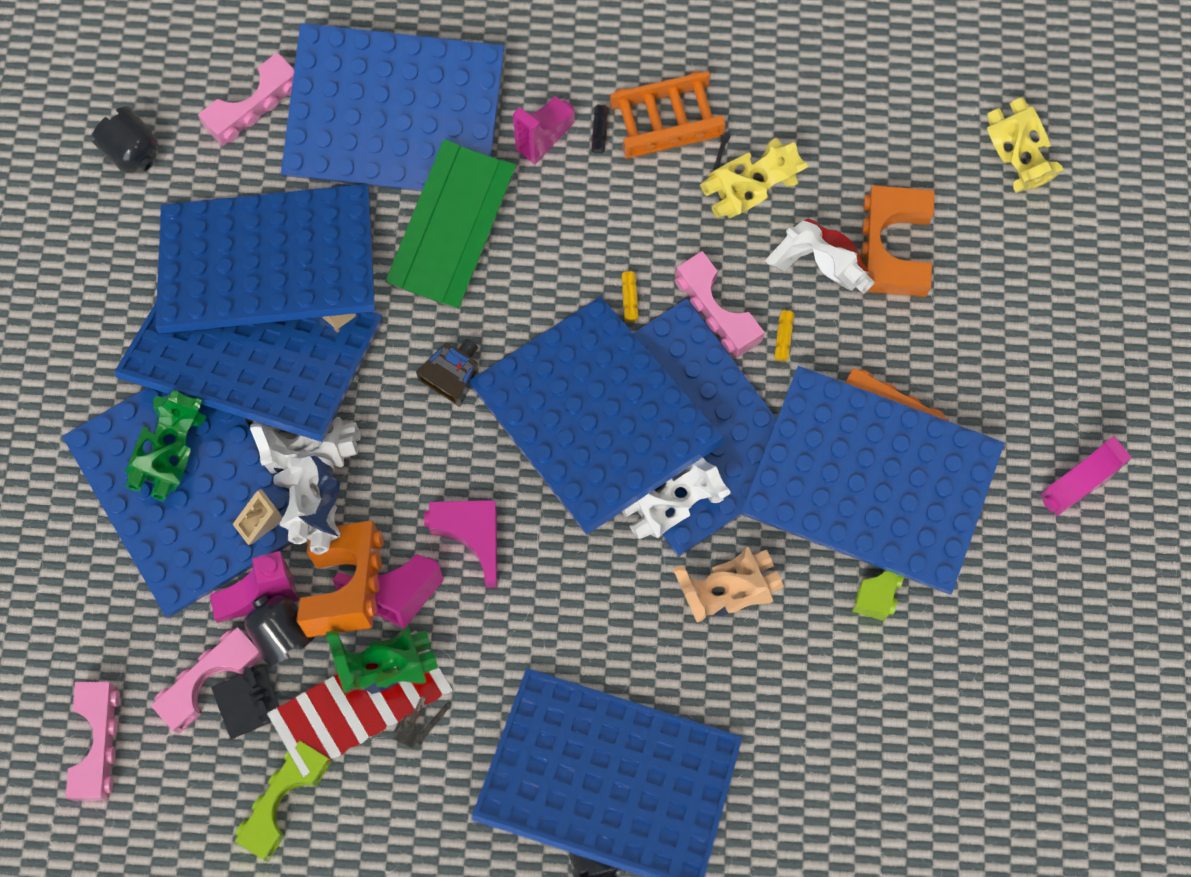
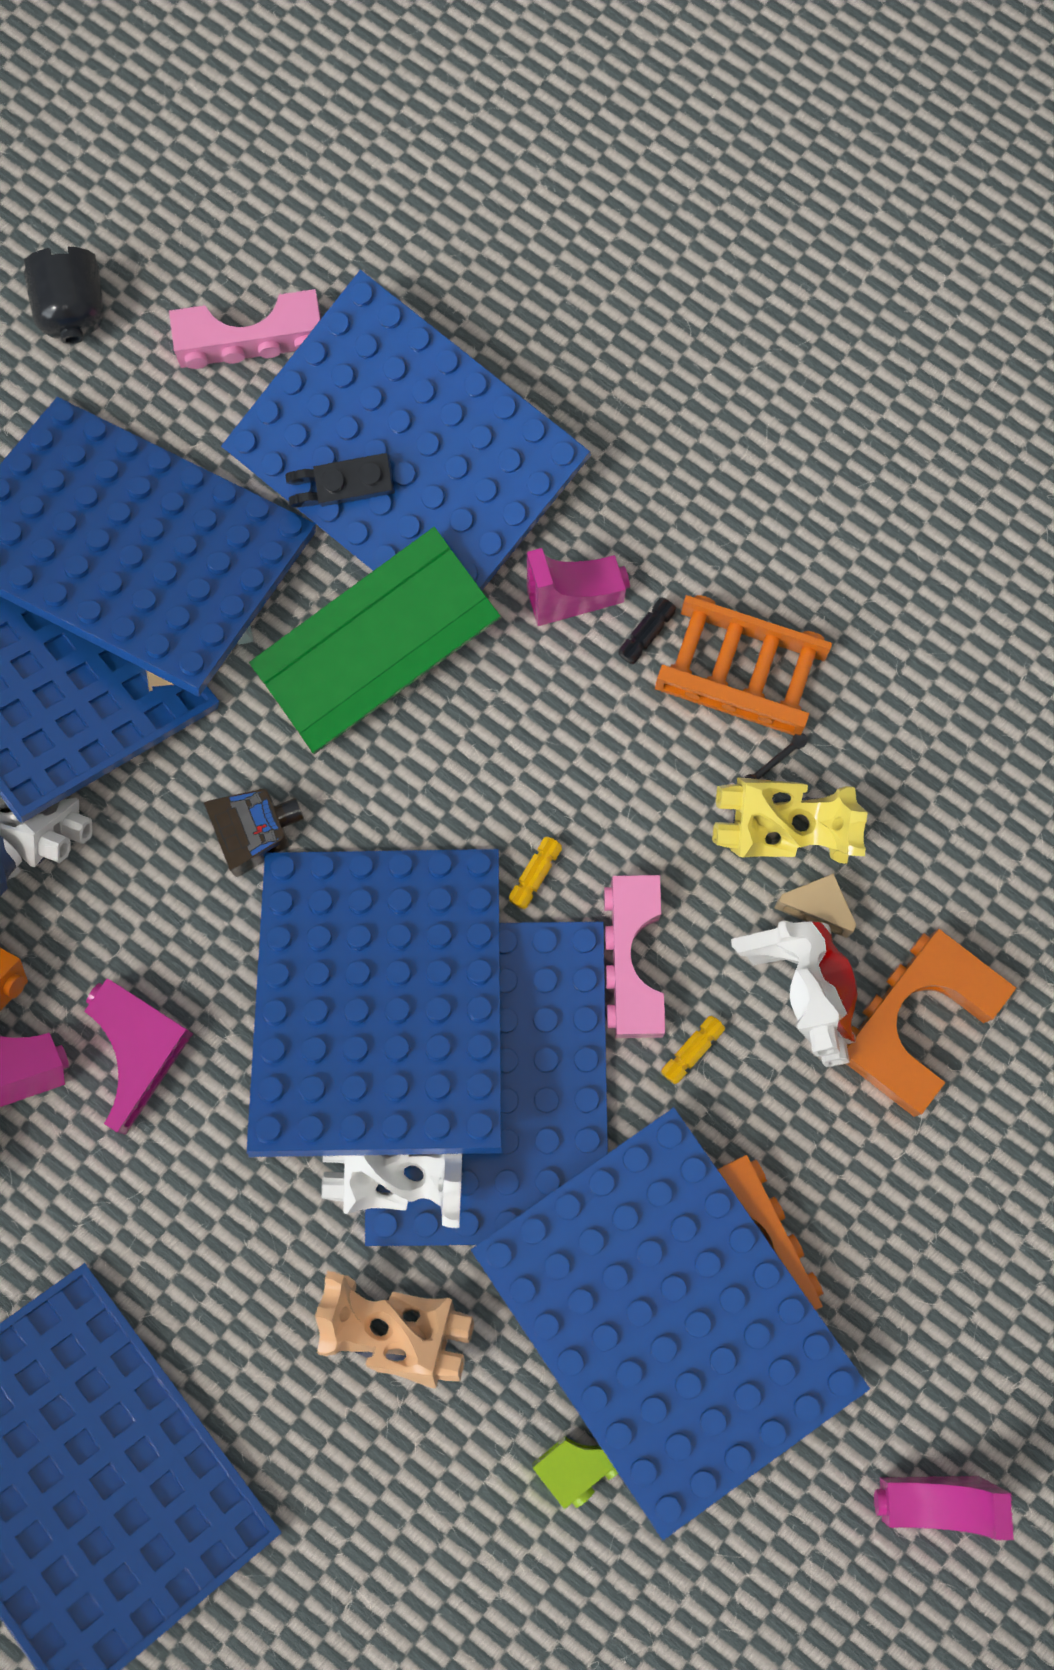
camera: 35 degrees right, 5 degrees up
(371, 147) = (344, 481): none -> black hinge
(796, 211) = (819, 902): none -> tan slope

